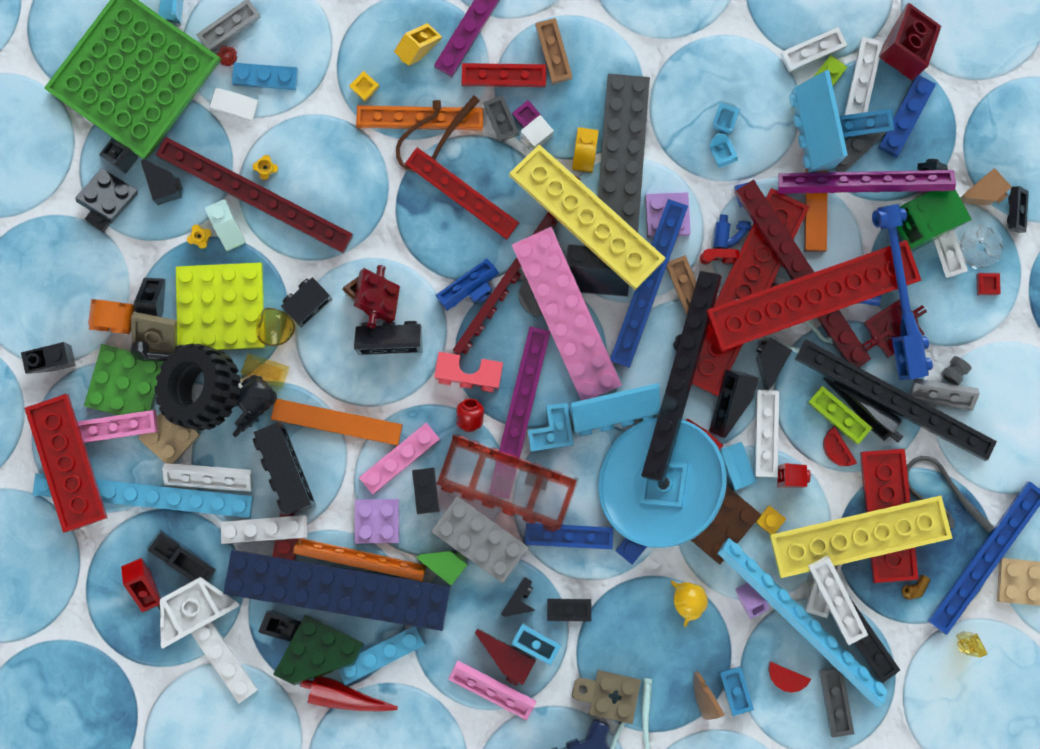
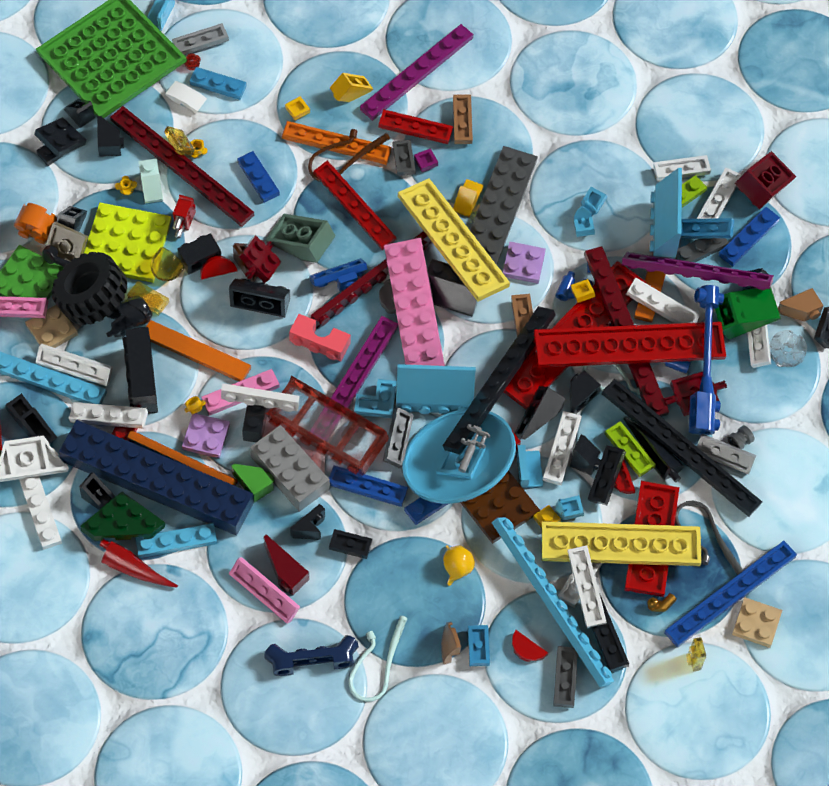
camera: 15 degrees right, 20 degrees down
(243, 166) = (179, 141): none -> clear yellow plate
(274, 261) = (183, 214): none -> red piece
(331, 312) = (217, 266): none -> red tile
(344, 184) = (258, 176): none -> blue plate
(354, 490) = (194, 405): none -> yellow plate
(413, 250) = (302, 236): none -> sand green slope
(436, 475) = (260, 397): none -> white plate
(469, 415) = (310, 370): red head -> none
(536, 133) = (430, 170): white brick -> none
(536, 644) = (313, 559): medium azure brick -> none
(587, 469) = (398, 437): none -> plate
(598, 695) = (354, 618): dark tan plate -> none
(646, 293) = (491, 308): blue plate -> none
(675, 478) = (471, 446): none -> light grey piece
(727, 256) = (558, 300): red plate -> none
(744, 239) = (582, 290): none -> yellow plate
(751, 600) = (513, 576): lavender brick -> none
(792, 503) = (569, 508): none -> medium azure plate
(793, 476) = (575, 482): red slope -> none
(796, 440) = (585, 456): none -> black slope
(824, 456) = (606, 475): none -> black plate
(834, 230) = (661, 303): none -> white plate
(988, 284) = (787, 380): red tile -> none

